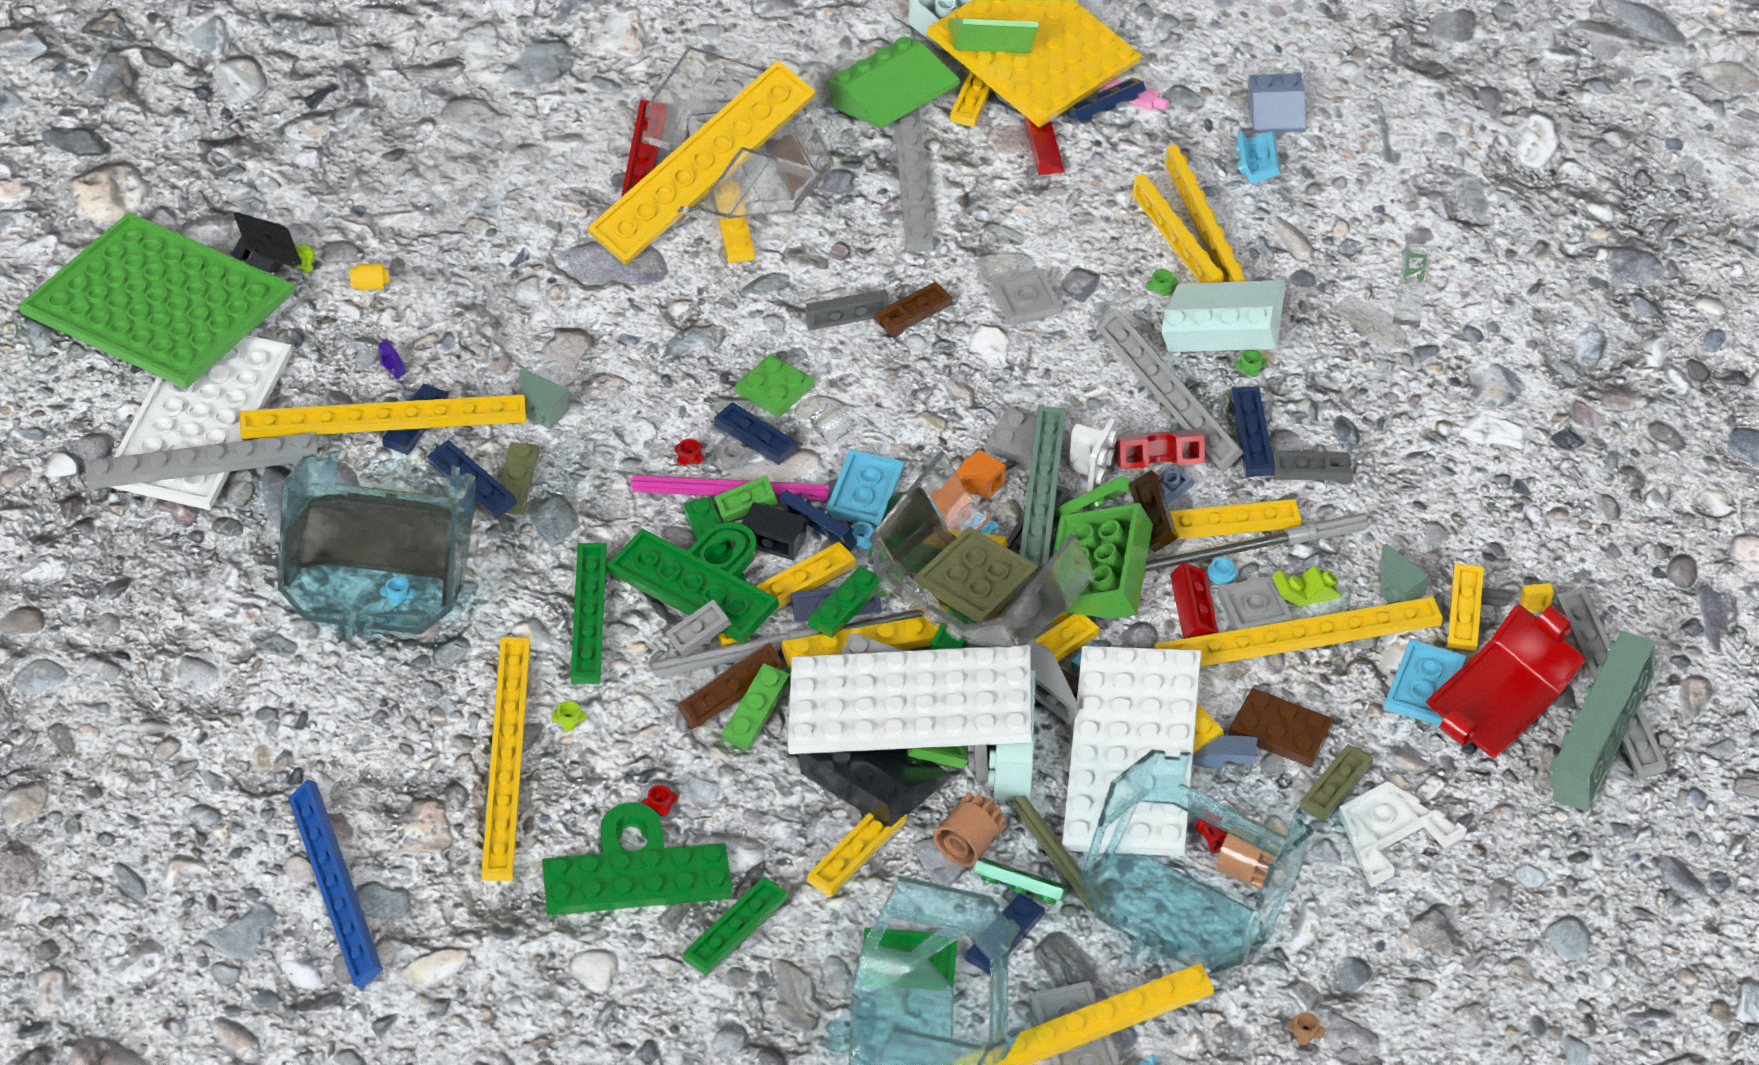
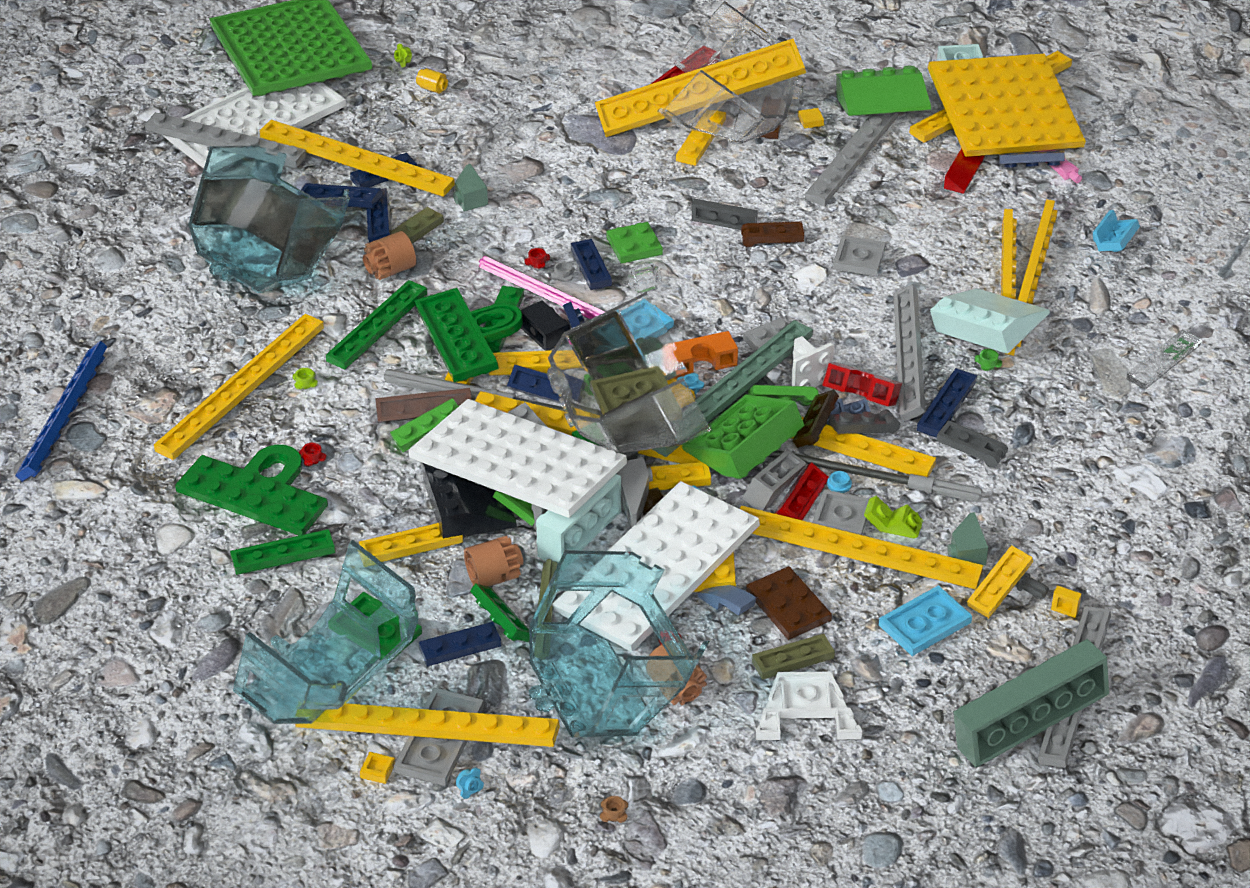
camera: 35 degrees right, 5 degrees down
(267, 243) = (374, 40): black piece -> none
(390, 359) = (399, 131): dark purple tile -> none
(397, 590) = (268, 260): medium azure plate -> none
(409, 471) = (359, 196): none -> dark blue plate
(534, 522) = (389, 255): none -> nougat gear
(698, 628) = (428, 358): light grey plate -> none
(737, 501) = (551, 296): bright green plate -> none
(835, 144) = (811, 118): none -> yellow tile
(844, 602) = (528, 387): green plate -> none
(992, 35) = (968, 80): bright green slope -> none
(1162, 282) = (969, 282): bright green plate -> none
(1164, 601) = (773, 480): none -> light grey slope
(1197, 491) = (864, 423): none -> dark grey plate
(1276, 103) = (1161, 205): slope -> none
(1509, 681) = (980, 649): red panel -> none

